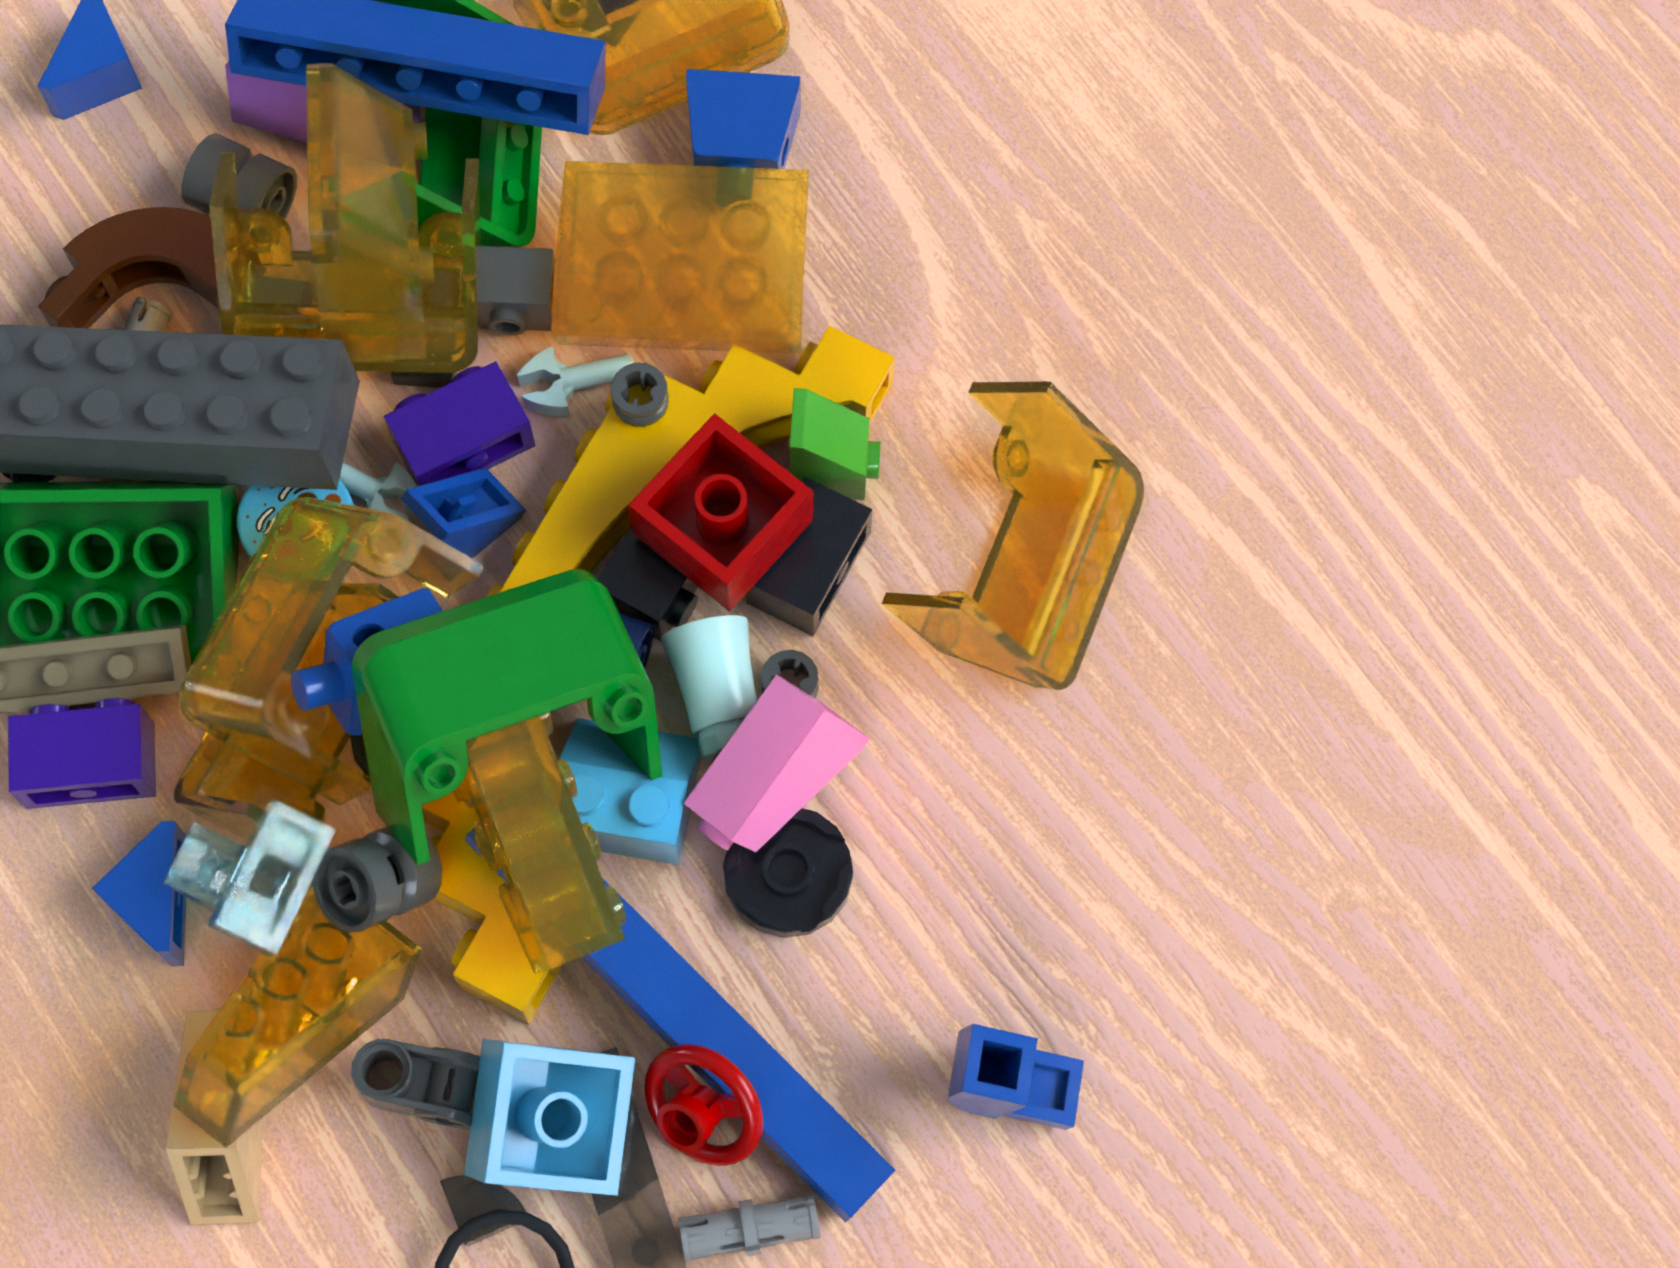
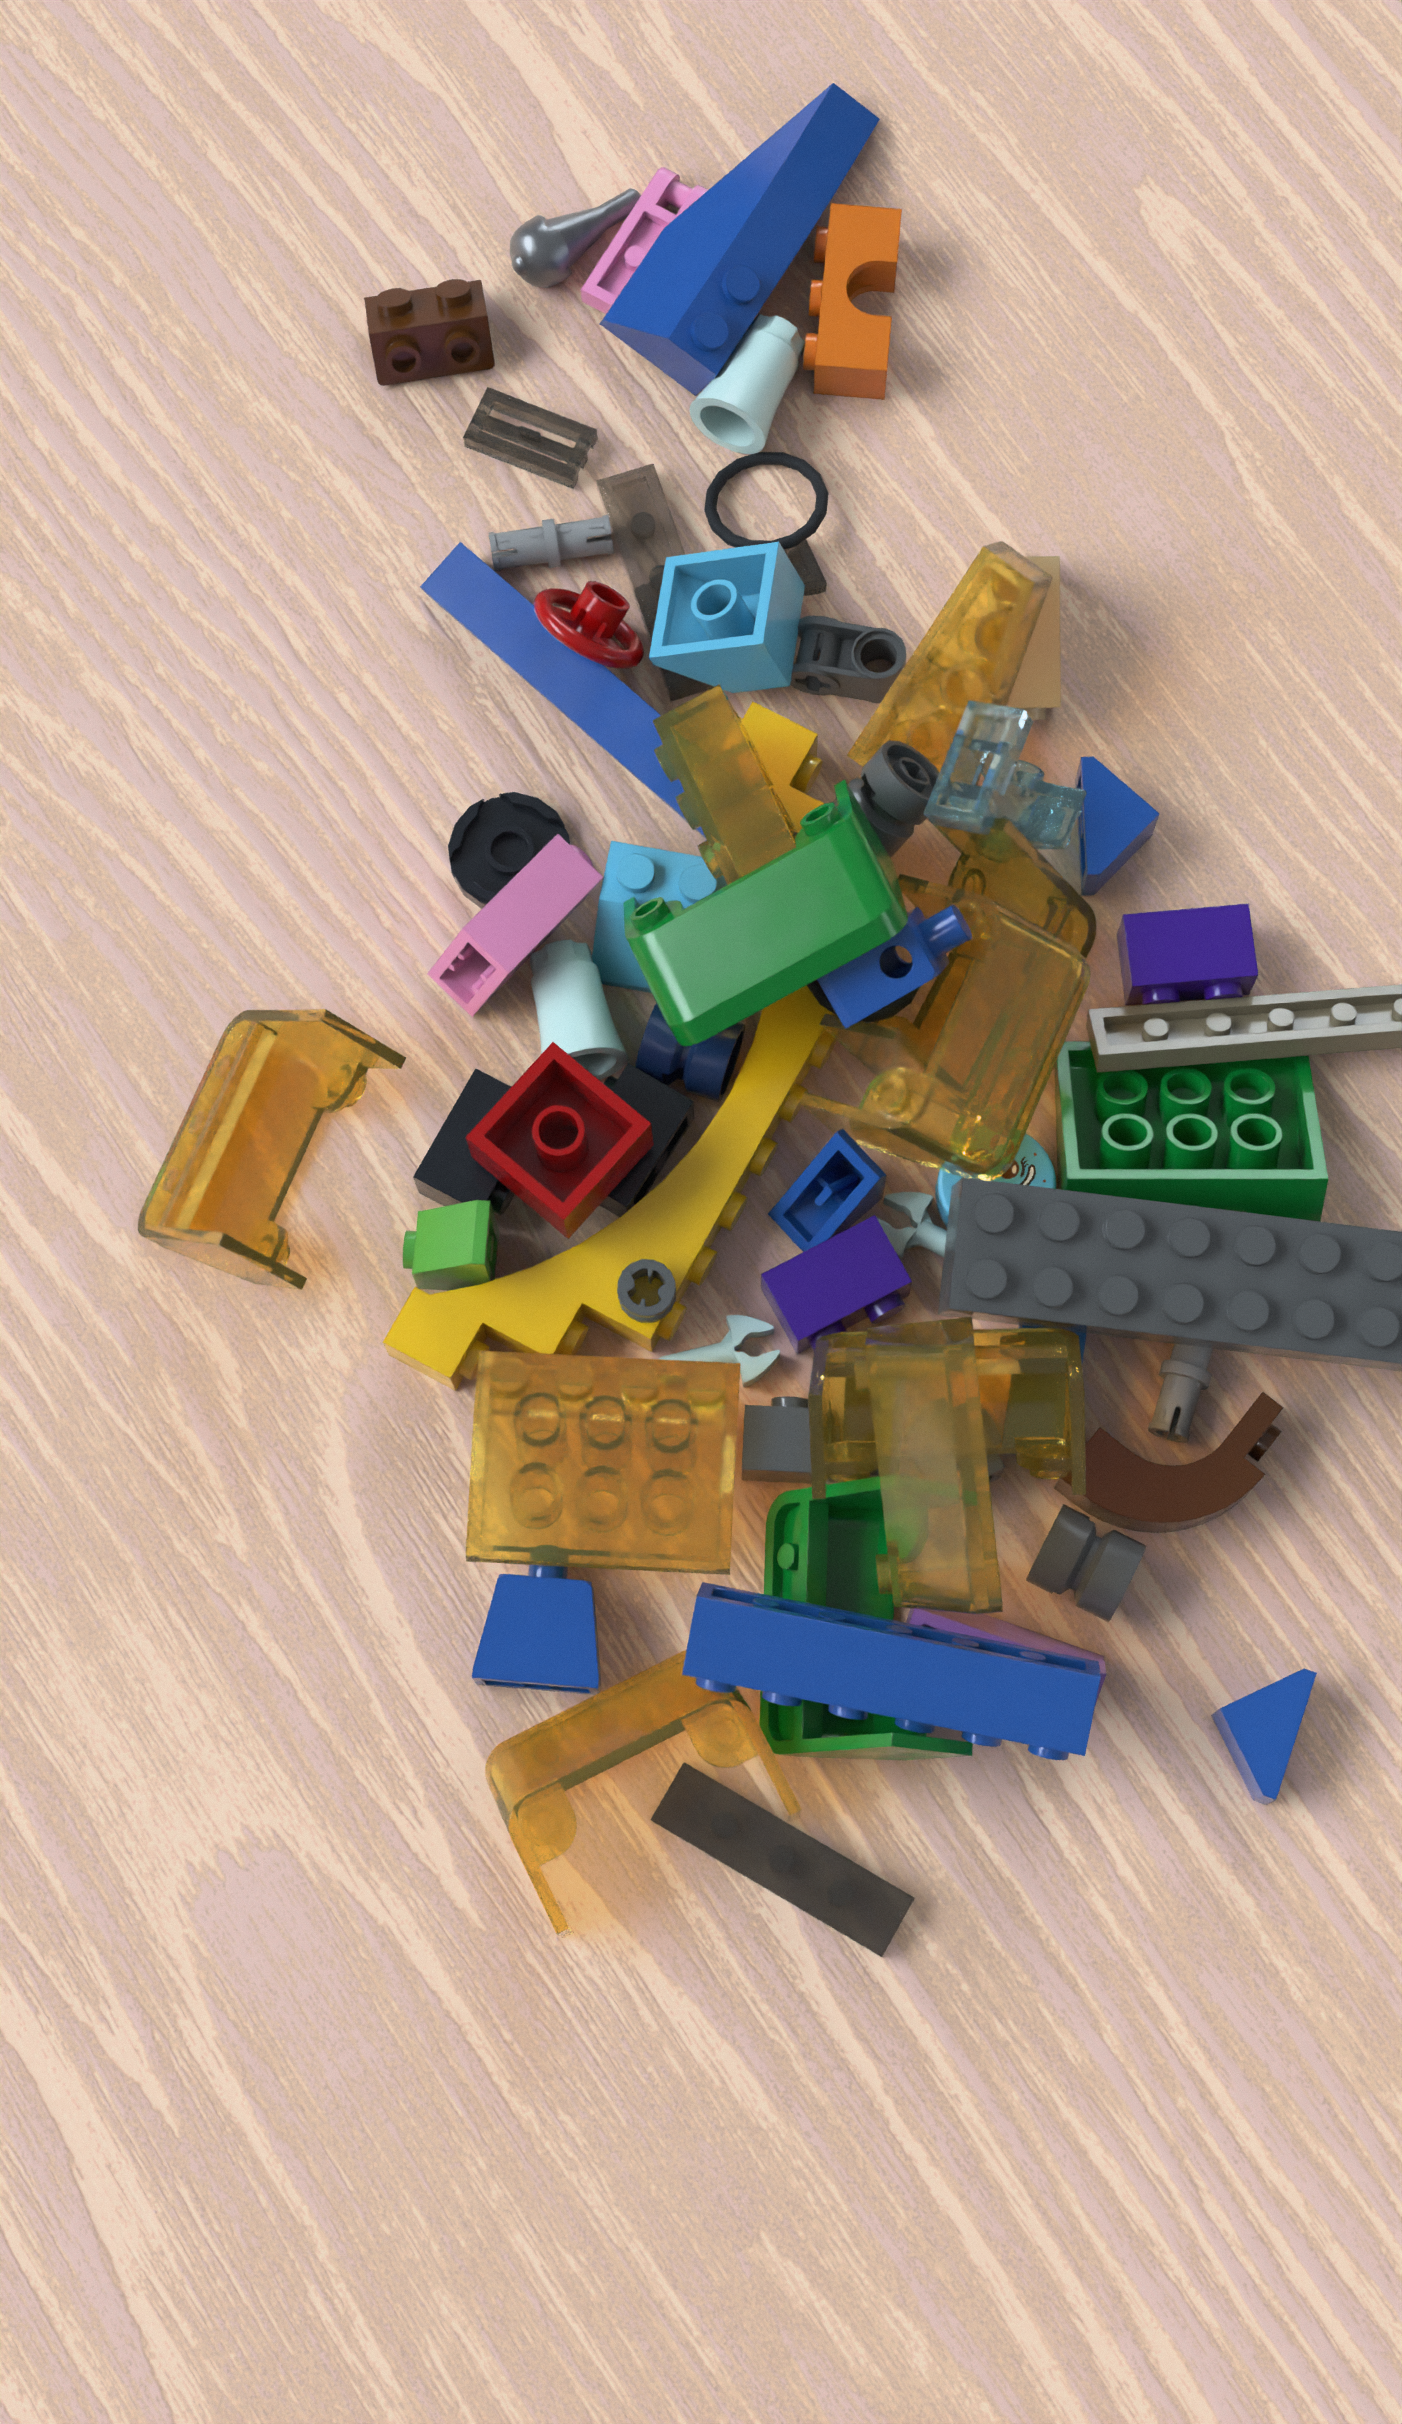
camera: 175 degrees left, 5 degrees up
(792, 660) = (521, 1036): dark grey bush -> none
(1006, 1076) = (313, 648): blue brick -> none

